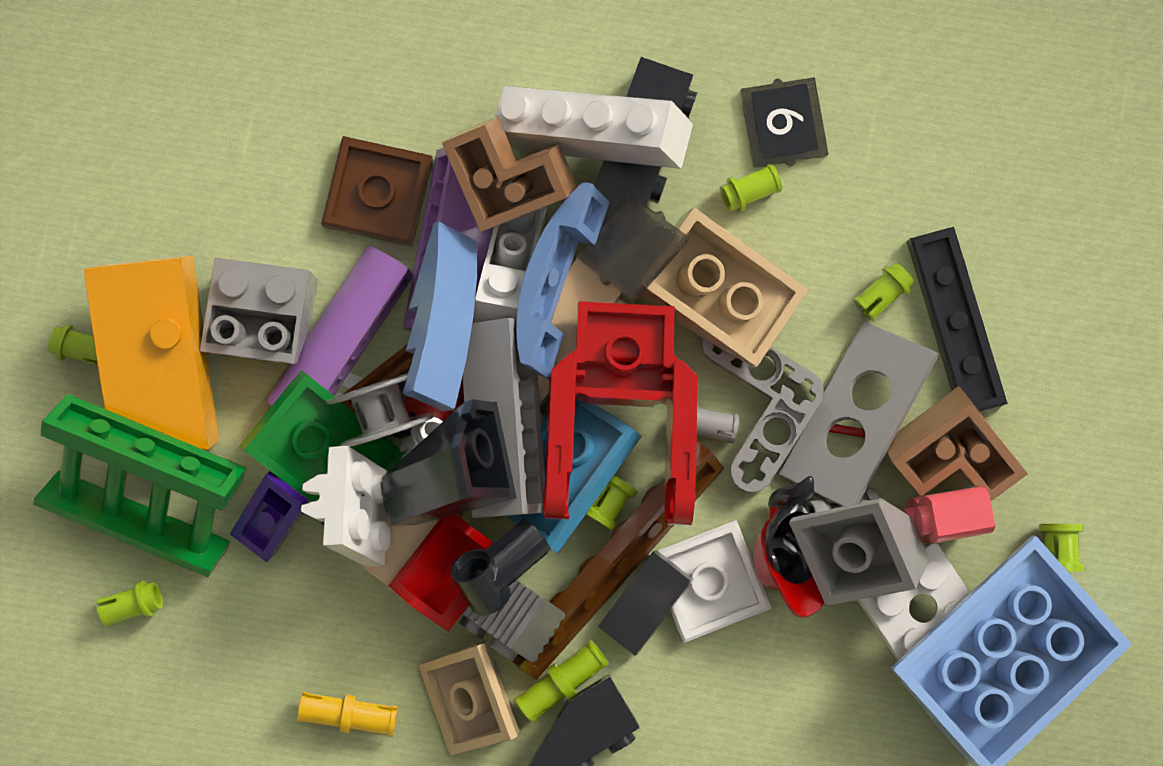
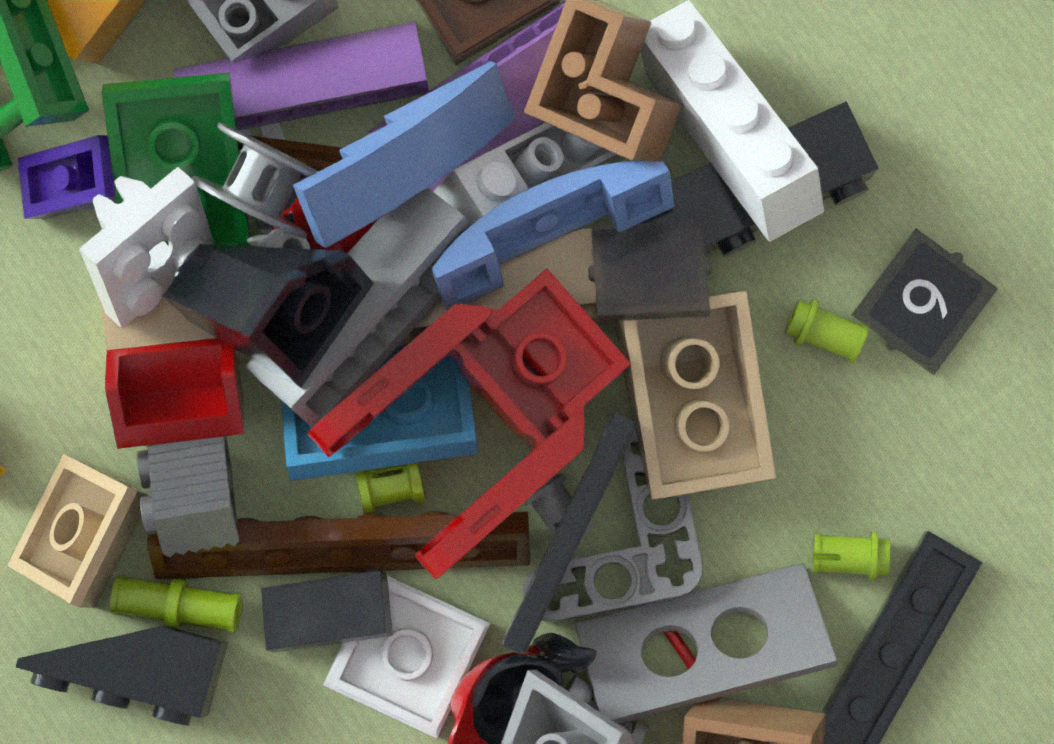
camera: 45 degrees right, 0 degrees up
(488, 573) = (204, 432): black piece -> none
(732, 429) = (568, 533): none -> black tile

